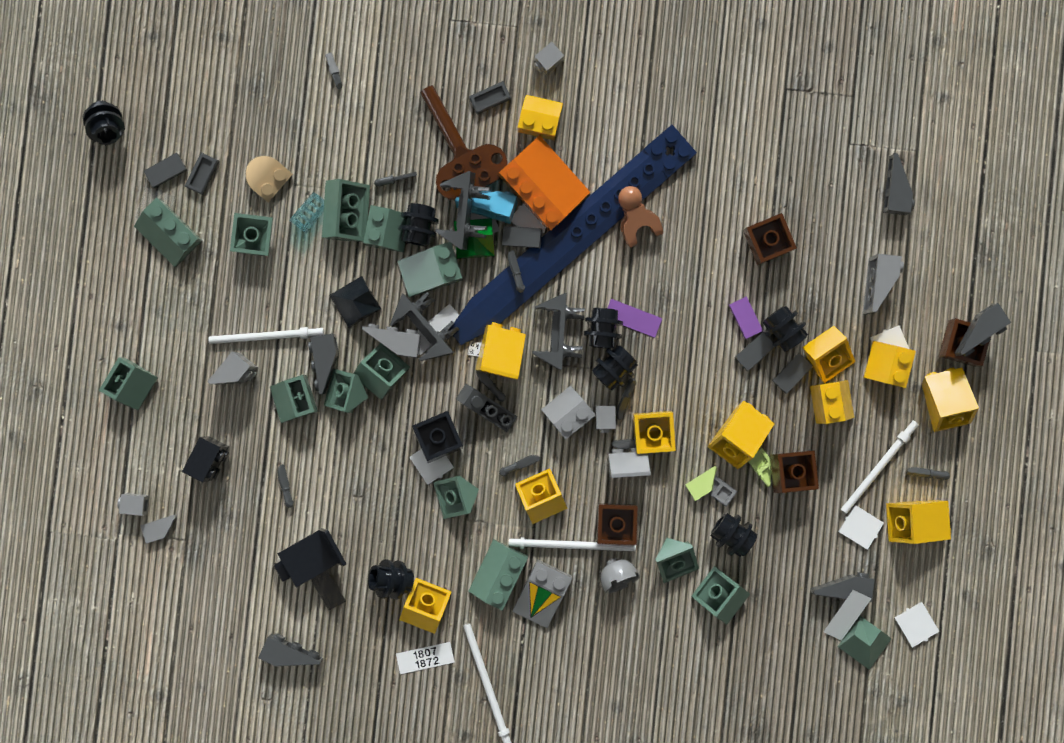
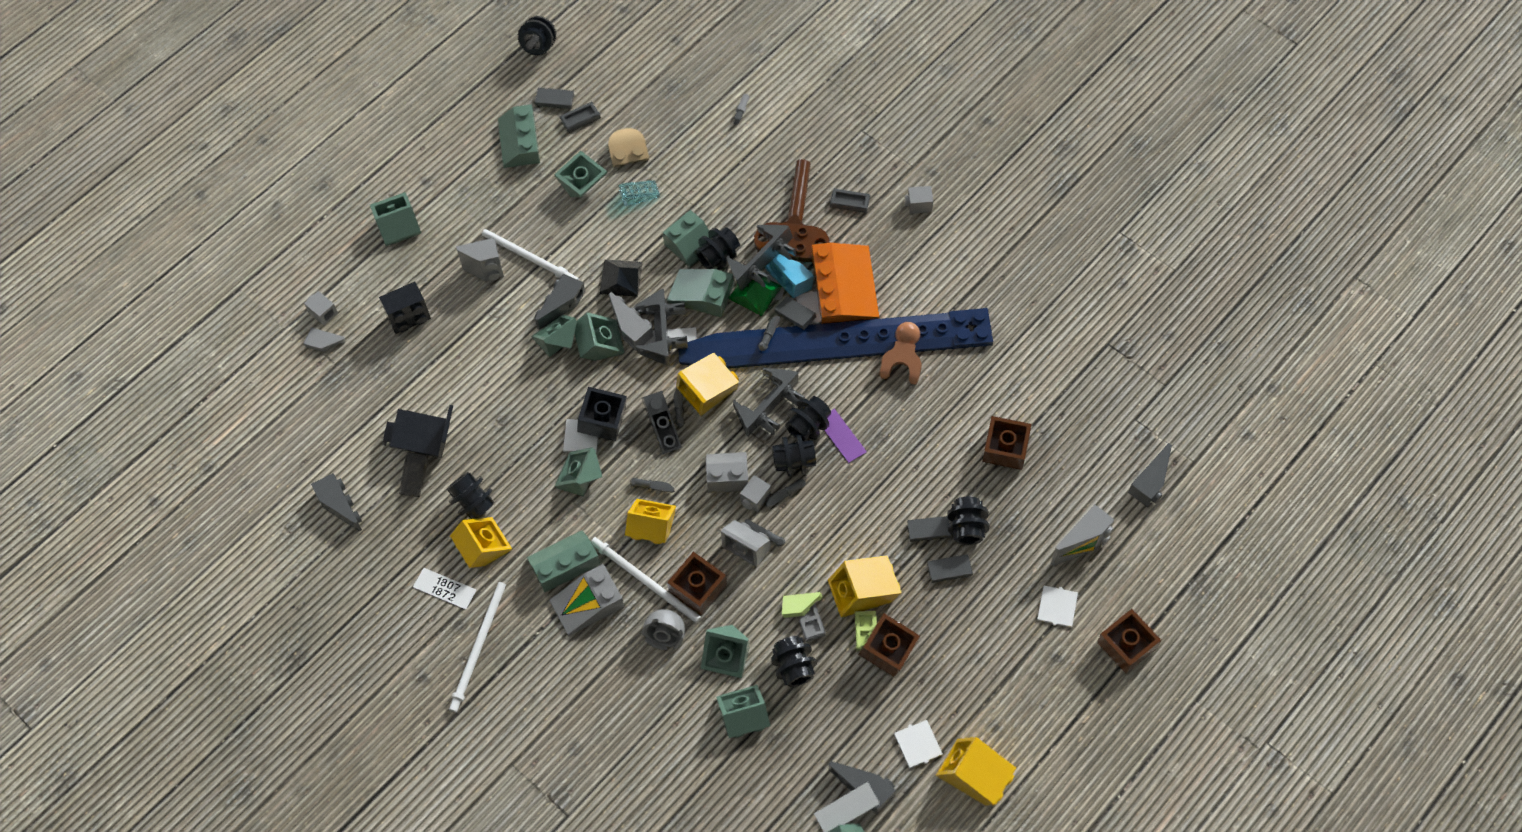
camera: 40 degrees right, 25 degrees down
(284, 483) = (447, 376): dark grey piece -> none
(293, 398) = (513, 312): sand green slope -> none
(345, 210) = (667, 204): sand green slope -> none
(390, 179) = (723, 208): dark grey piece -> none
(539, 117) = (879, 236): yellow slope -> none
(654, 432) = (789, 527): yellow slope -> none
(745, 317) = (940, 496): medium lavender tile -> none
(829, 354) = (994, 572): yellow slope -> none
(832, 402) = (969, 609): yellow slope -> none
(889, 364) = (1045, 616): yellow slope -> none
(903, 438) = (1012, 690): white bar -> none
(915, 471) = (1029, 749): dark grey piece -> none
(949, 399) = (1079, 683): yellow slope -> none
(984, 325) = (1153, 627): dark grey slope -> none

